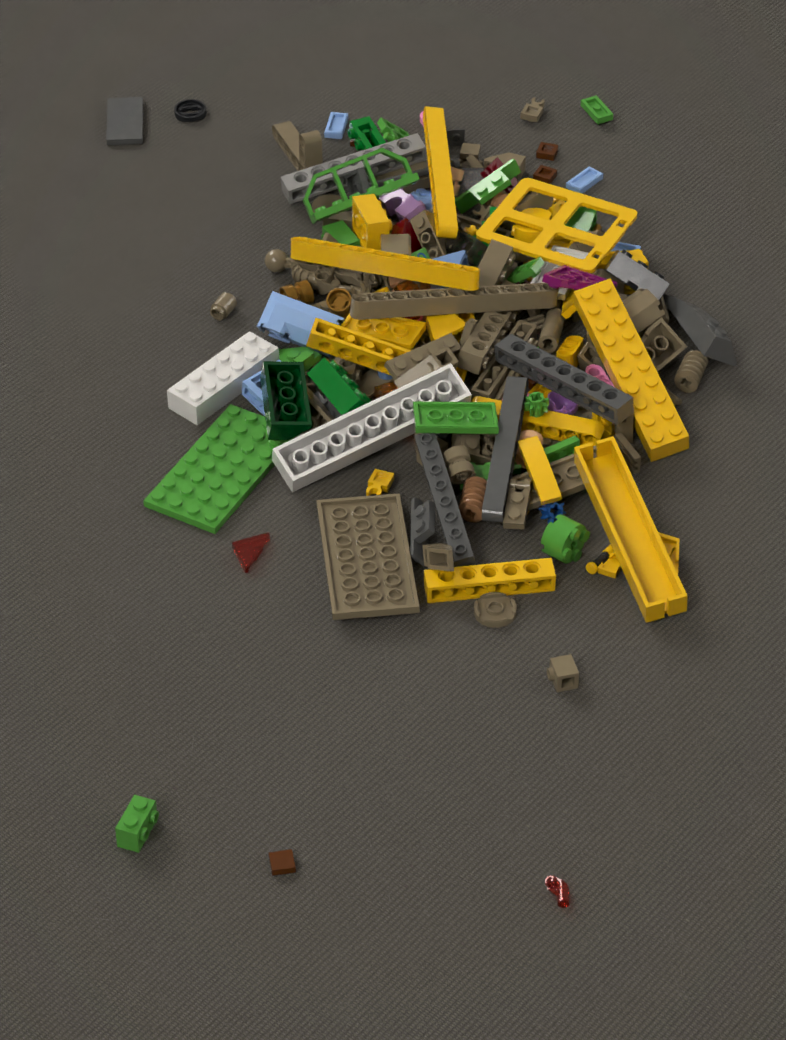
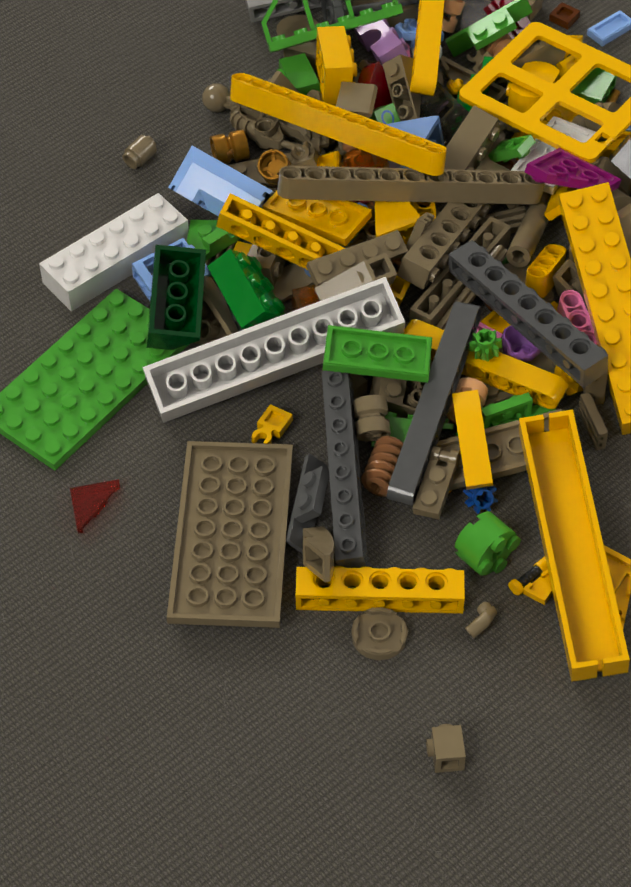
camera: 10 degrees right, 10 degrees up
(573, 588) = (486, 616): none -> dark tan arm

